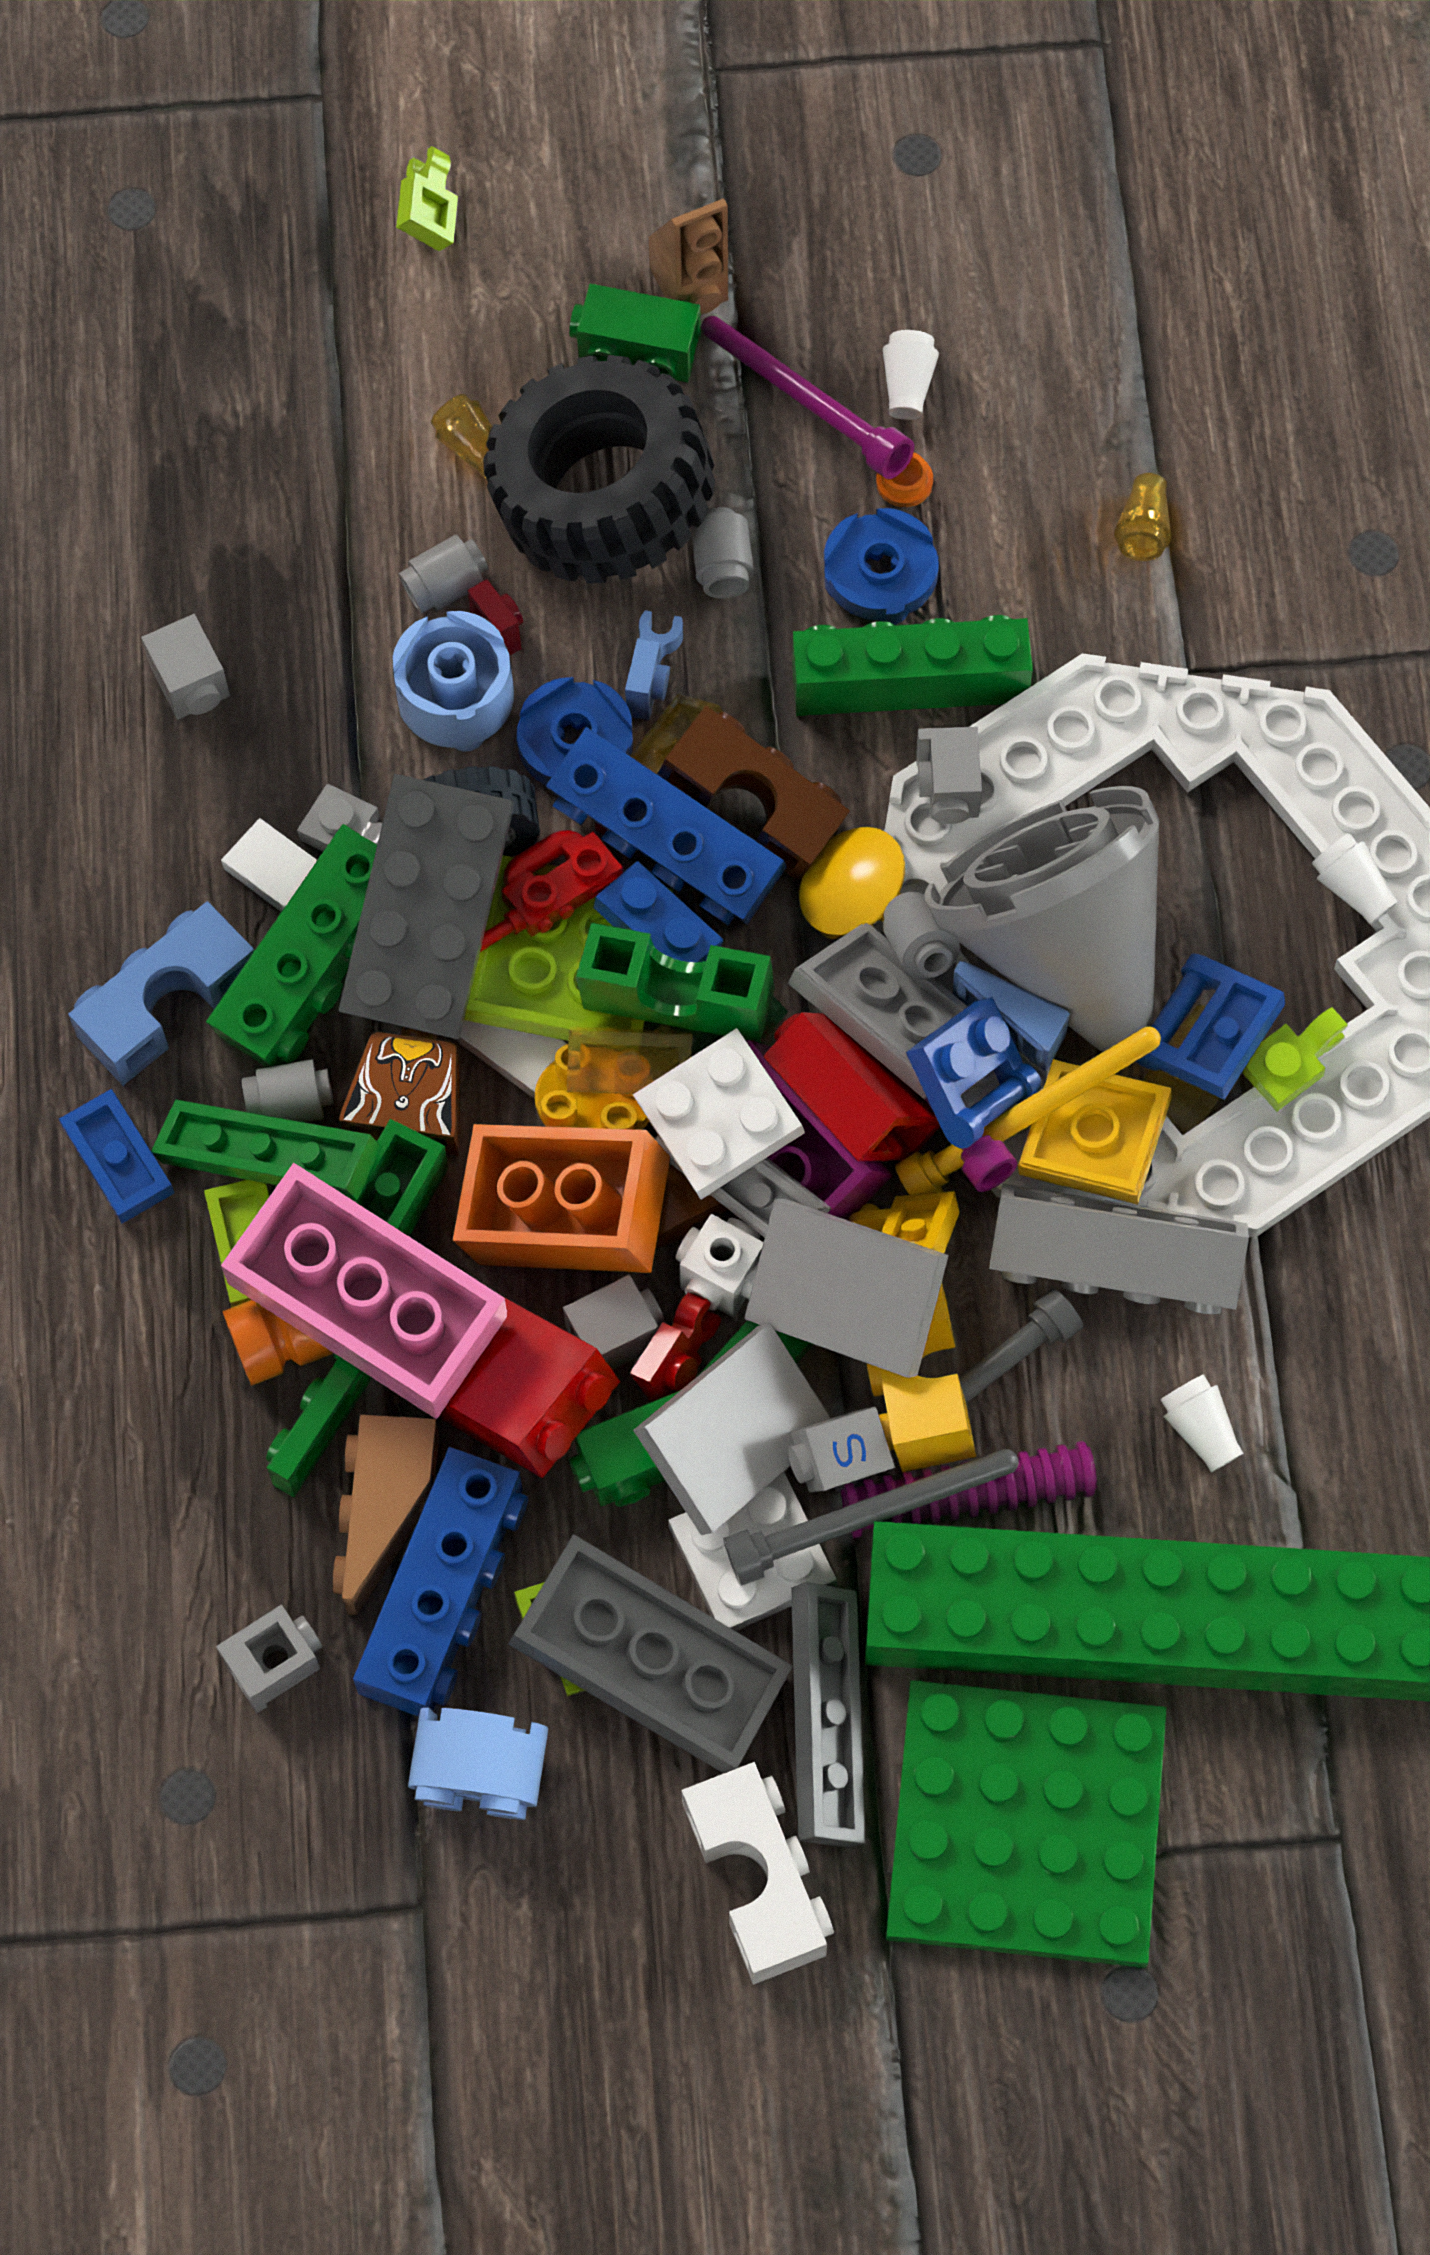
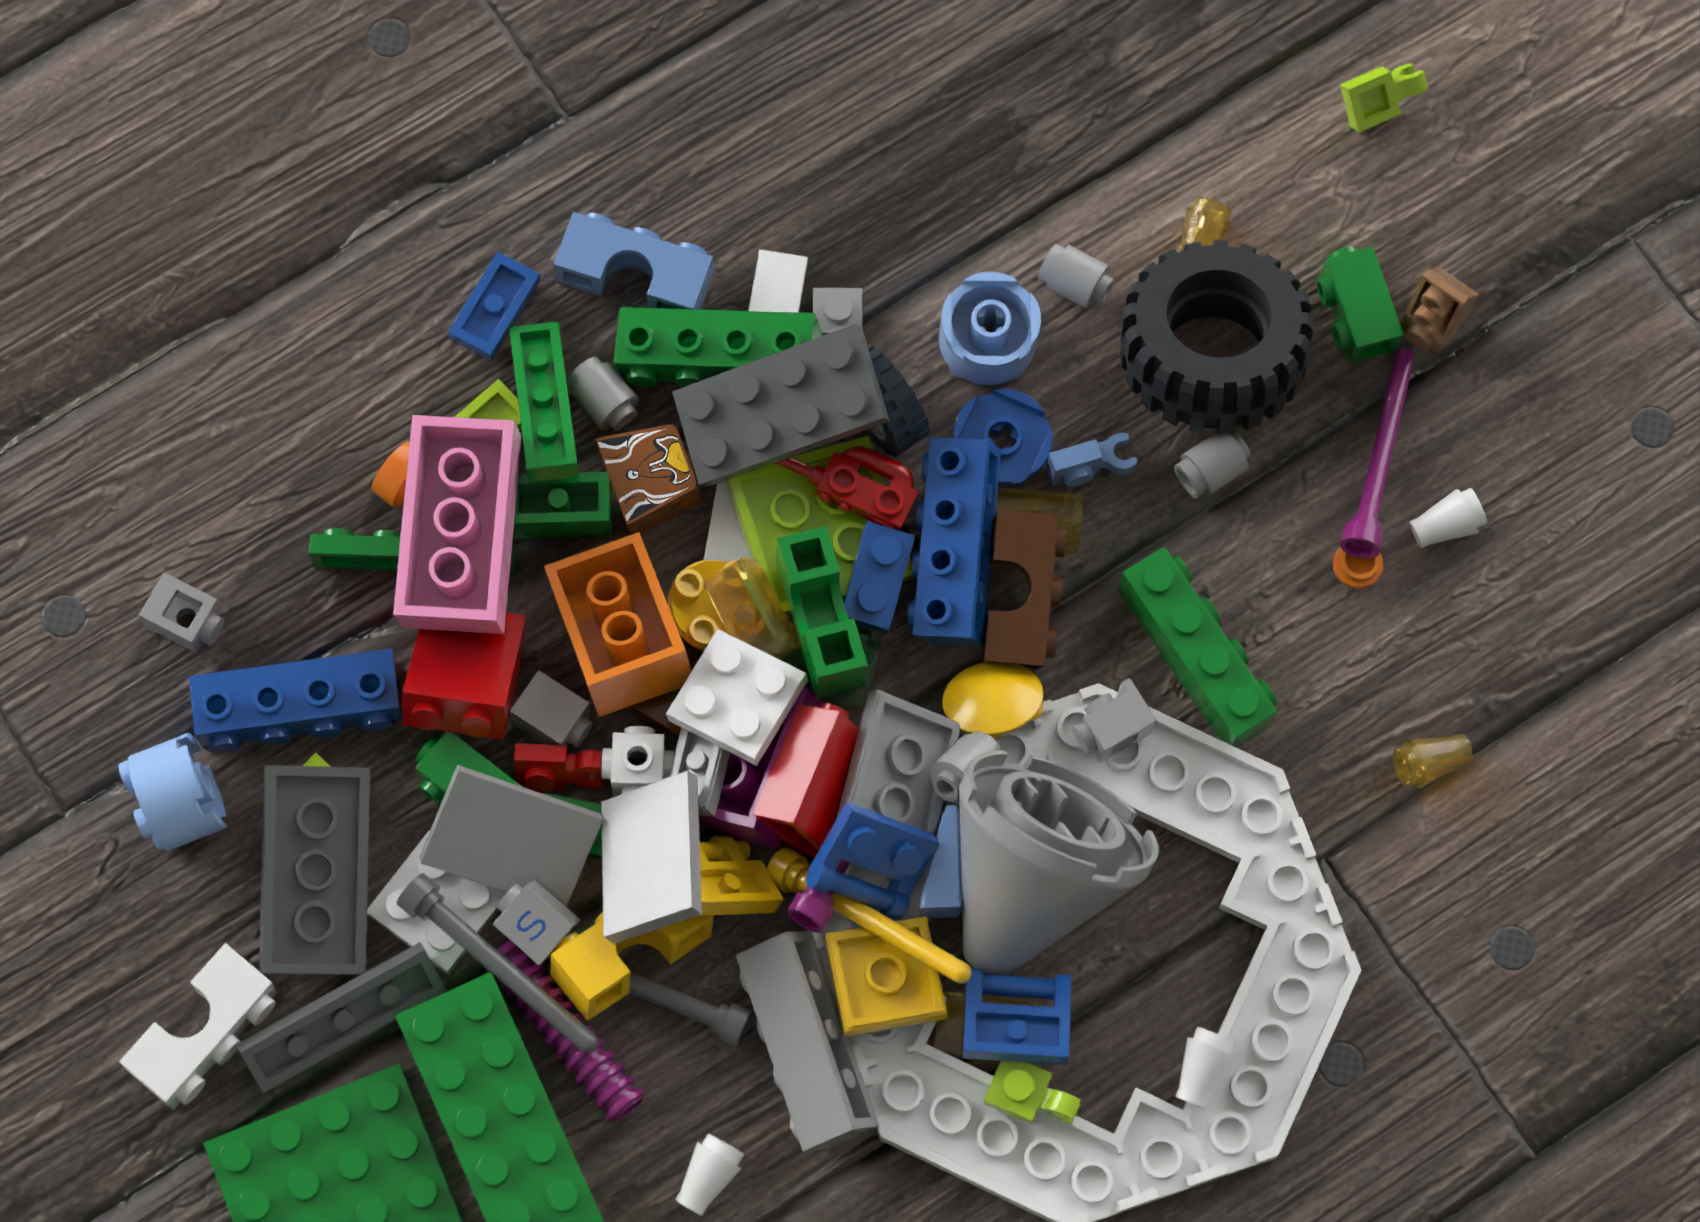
camera: 55 degrees right, 5 degrees up
(186, 667) = (894, 140): light grey brick -> none
(393, 1477) = (339, 626): medium nougat slope -> none
(499, 611) = (1062, 333): dark red plate -> none
(885, 595) = (1253, 604): blue plate -> none

